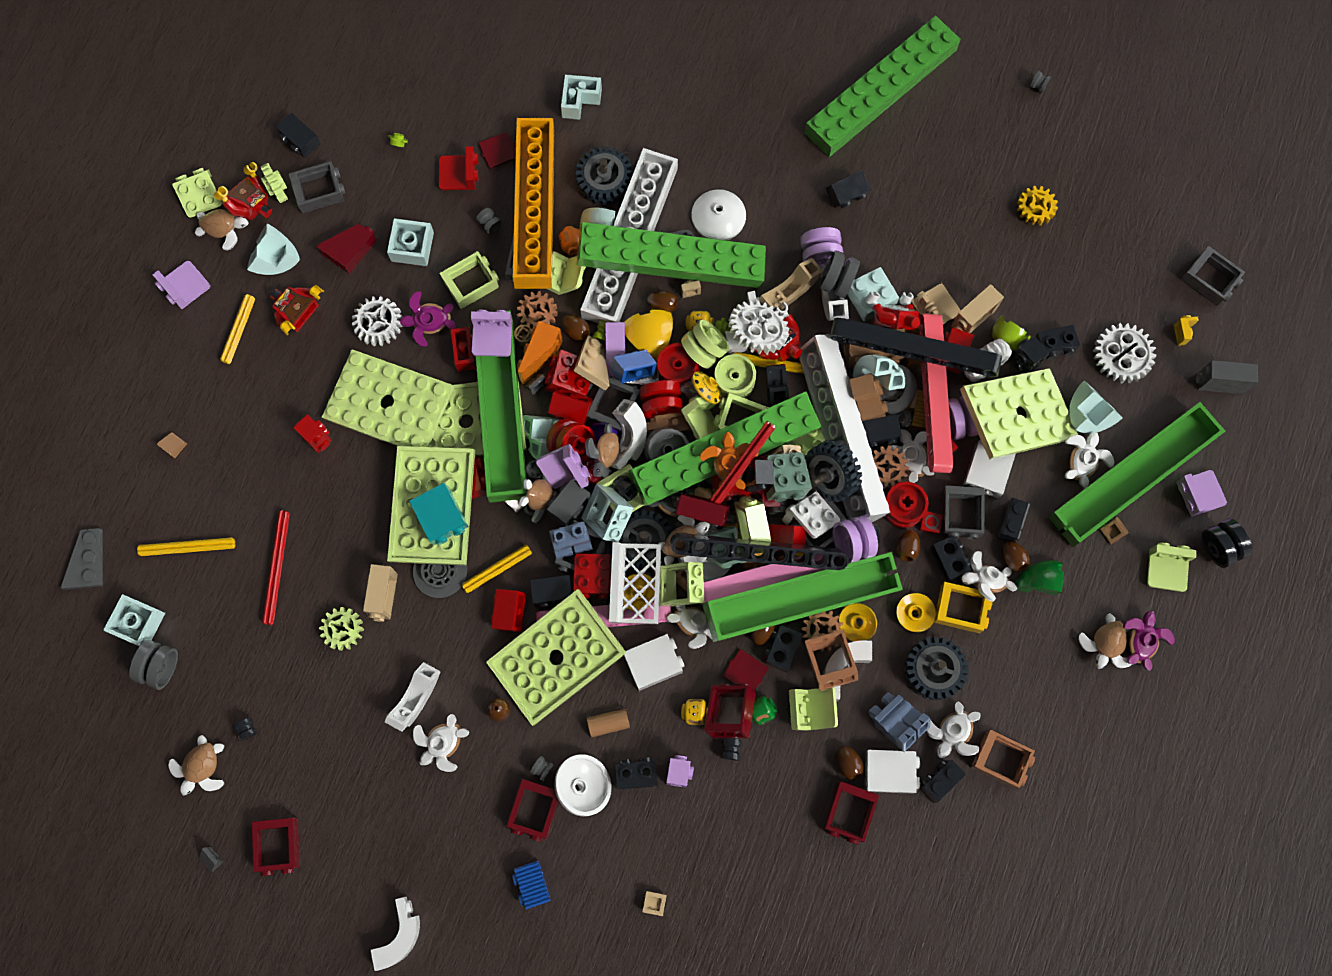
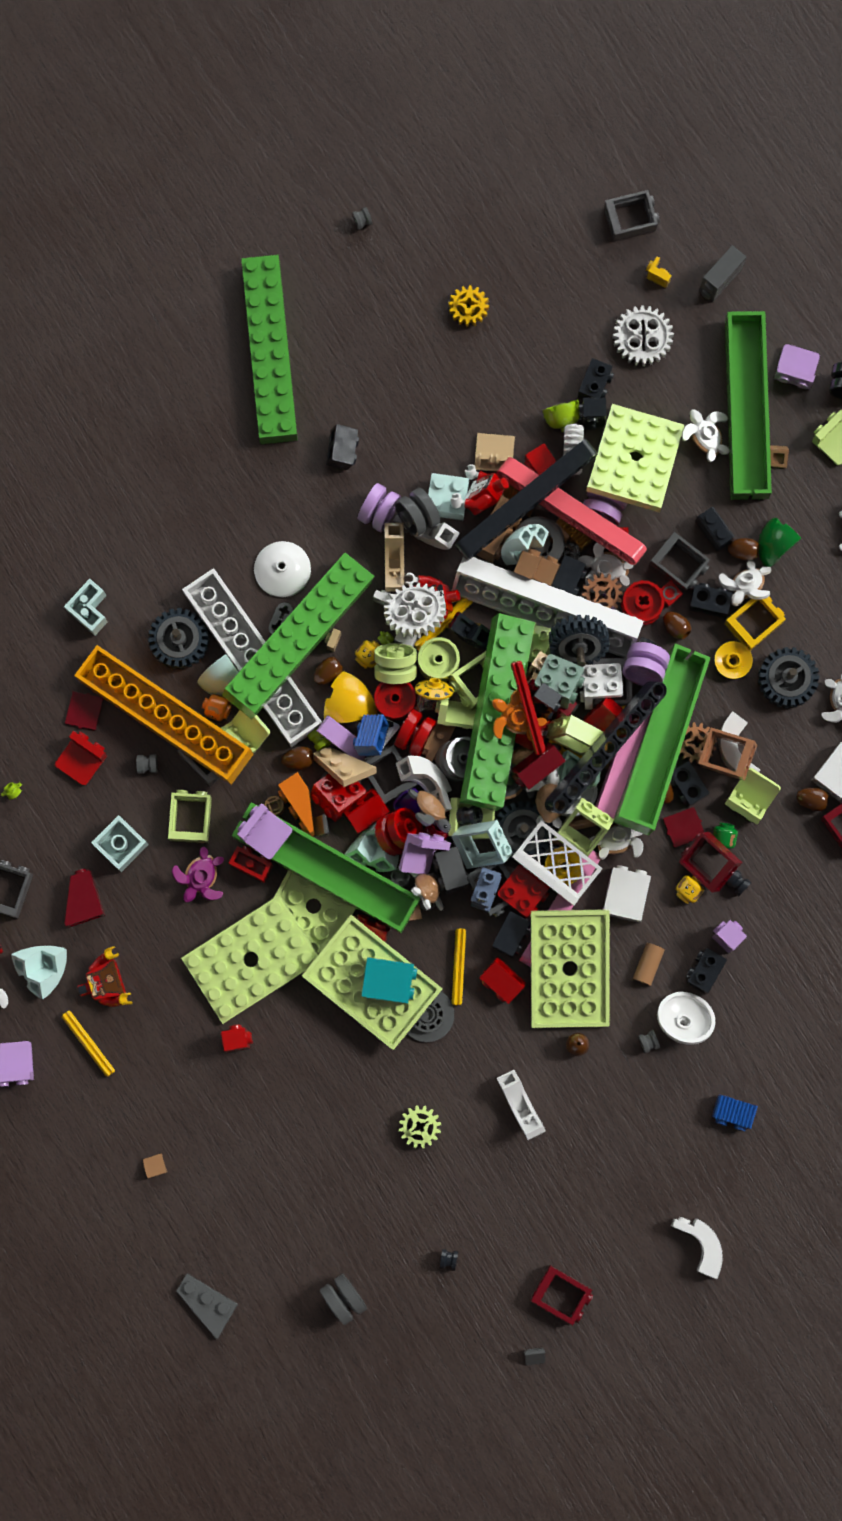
camera: 55 degrees left, 5 degrees up
(134, 621) = (293, 1293): light aqua brick -> none
(186, 546) = (255, 1211): yellow axle -> none
(198, 767) = (453, 1317): animal -> none
(275, 568) = (327, 1147): red axle -> none
(380, 592) = (415, 1074): tan window -> none
(381, 308) = (162, 923): white gear -> none
(441, 743) = (572, 1108): white animal -> none
(517, 829) = (684, 1093): dark red window -> none
(537, 303) = (256, 773): nougat gear -> none
(654, 903) = (814, 1027): tan plate -> none
(851, 627) = (714, 717): yellow dish -> none
(899, 721) = (809, 736): sand blue hips -> none
(978, 310) = (525, 424): tan window -> none
(987, 473) = (663, 524): white brick -> none
(1090, 411) = (671, 399): light aqua brick -> none

